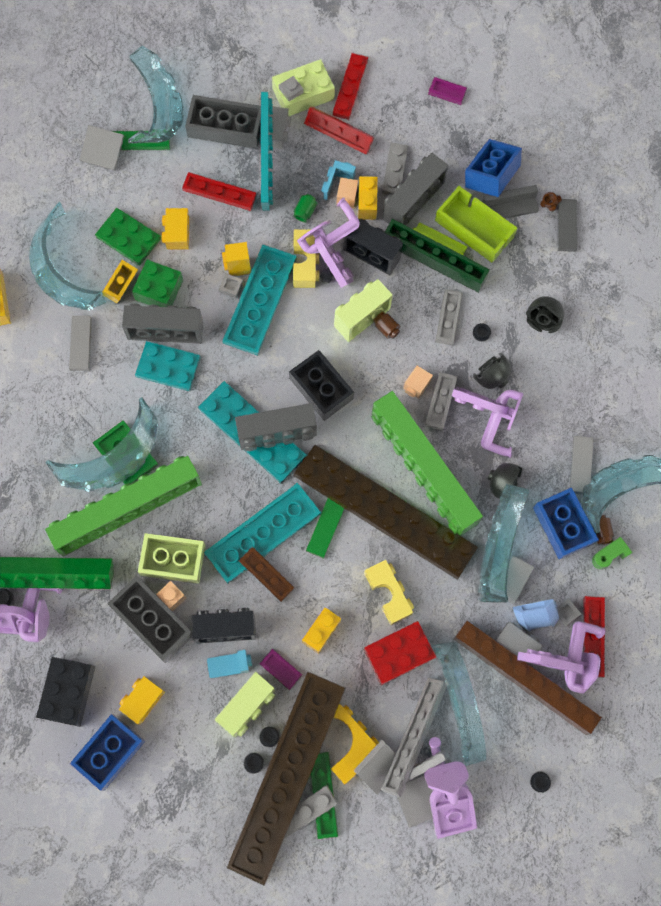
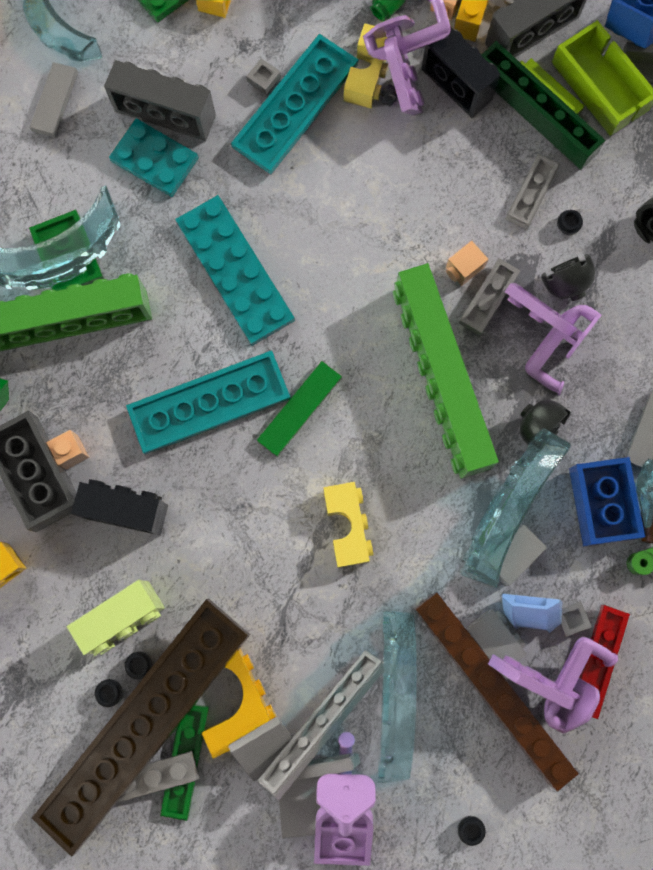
camera: 20 degrees right, 5 degrees up
(119, 281) = (123, 32): yellow brick -> none
(157, 284) = (170, 49): green brick -> none
(171, 558) = (82, 401): yellowish green brick -> none
(229, 664) = (115, 558): medium azure bracket -> none
(236, 259) = (279, 41): yellow brick -> none
(266, 574) = (196, 456): reddish brown tile -> none
(276, 427) = (262, 269): dark grey brick -> none
(280, 669) = (179, 583): magenta tile -> none
(321, 385) = (340, 233): black brick -> none
(321, 630) = (244, 549): yellow brick -> none
(362, 309) = (422, 149): yellowish green brick -> none
(386, 511) = (375, 420): dark brown plate -> none
(387, 325) = (448, 179): reddish brown brick -> none
(399, 653) = (336, 608): red brick -> none

